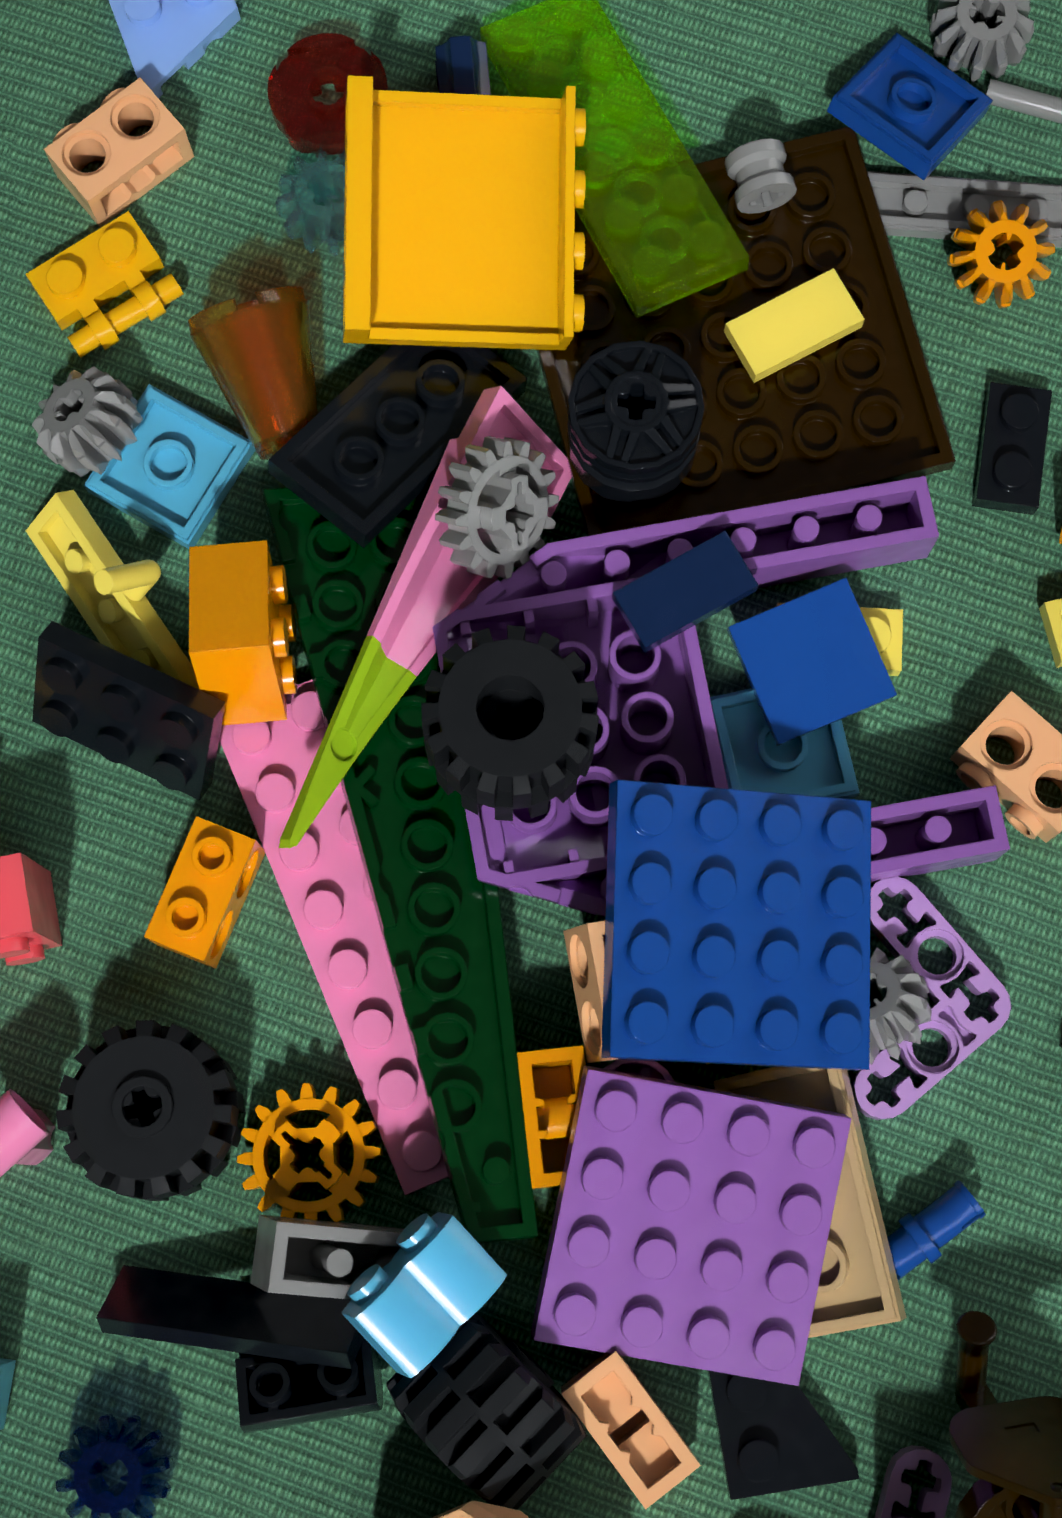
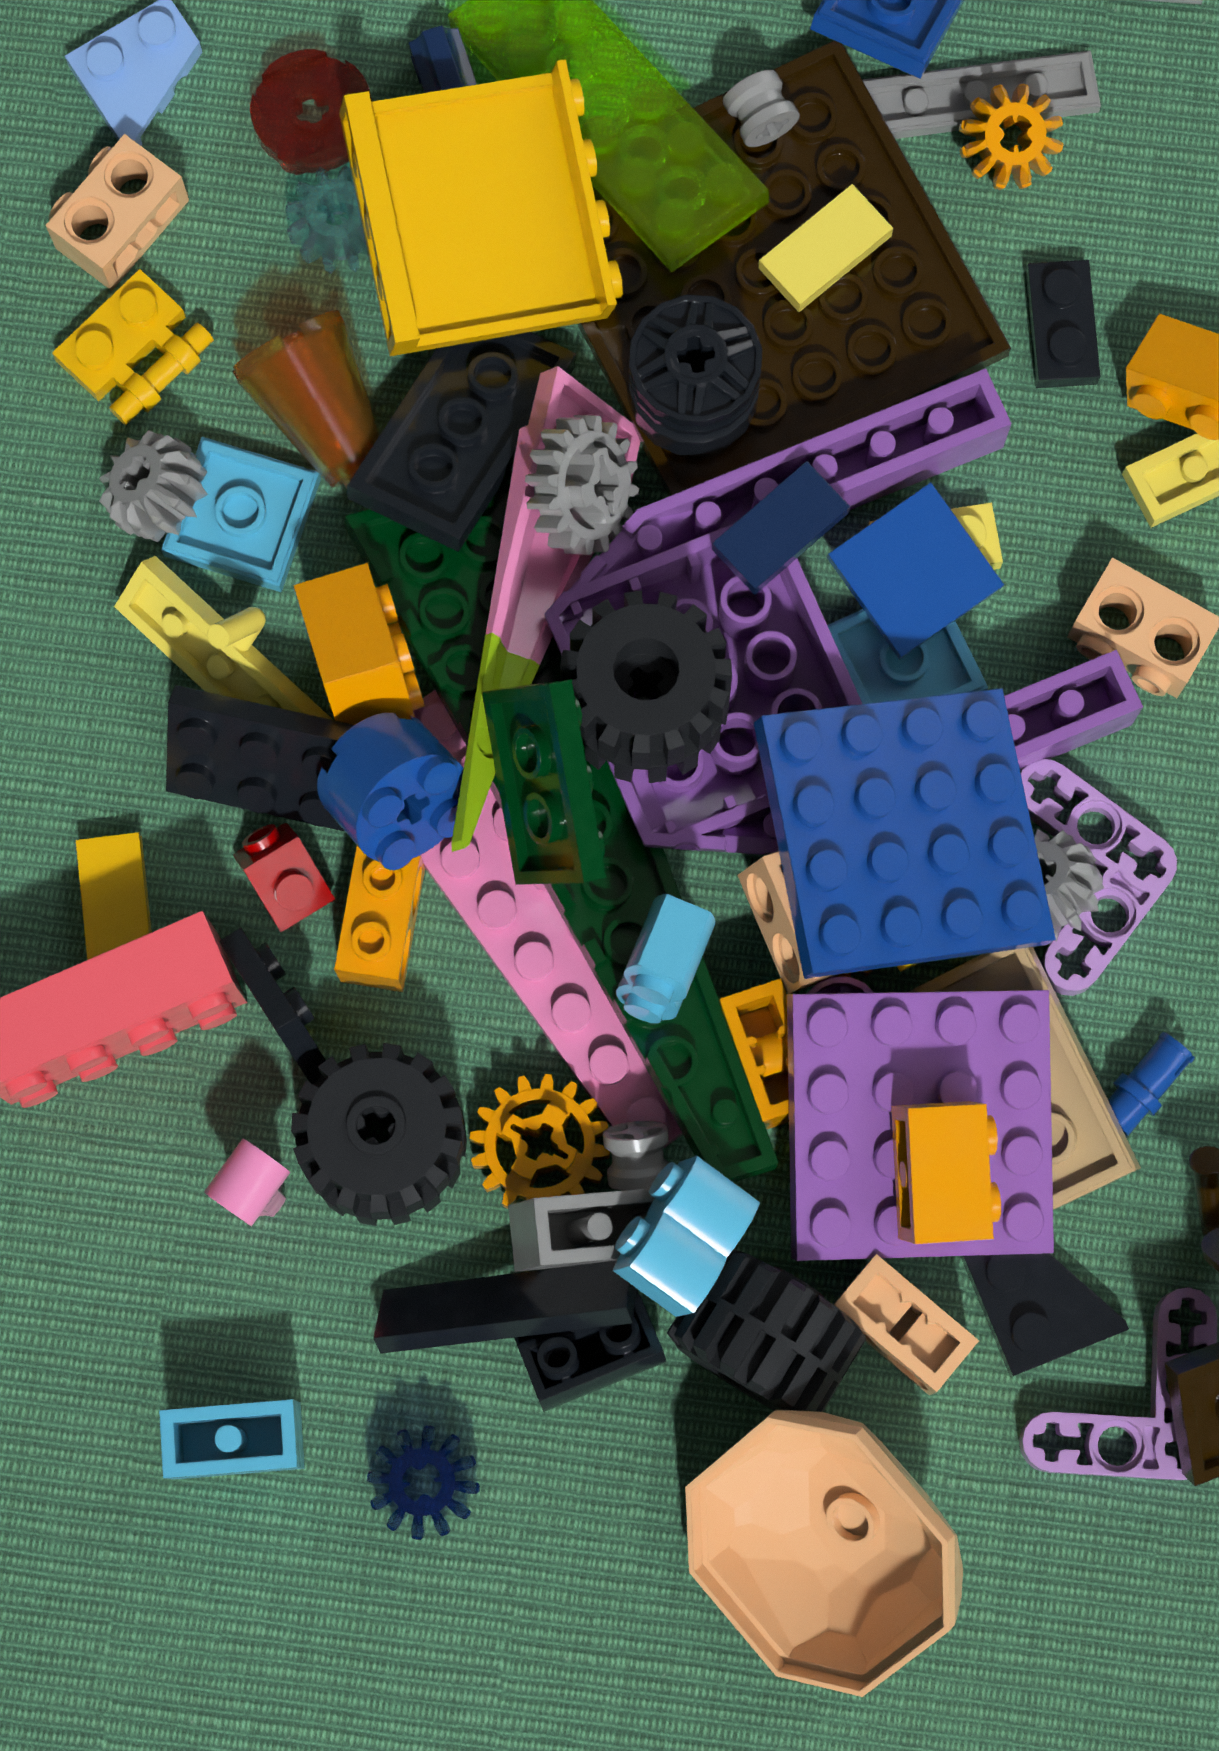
camera: 15 degrees left, 0 degrees up
(81, 959) = (284, 1010): none -> black wing
(122, 828) = (282, 874): none -> bracket
(237, 769) = (392, 788): none -> blue brick
(385, 801) = (544, 783): none -> dark green plate
(400, 1189) = (635, 1153): none -> light grey wheel
(465, 1005) = (665, 959): none -> medium azure brick
(702, 1288) = (944, 1172): none -> light orange brick

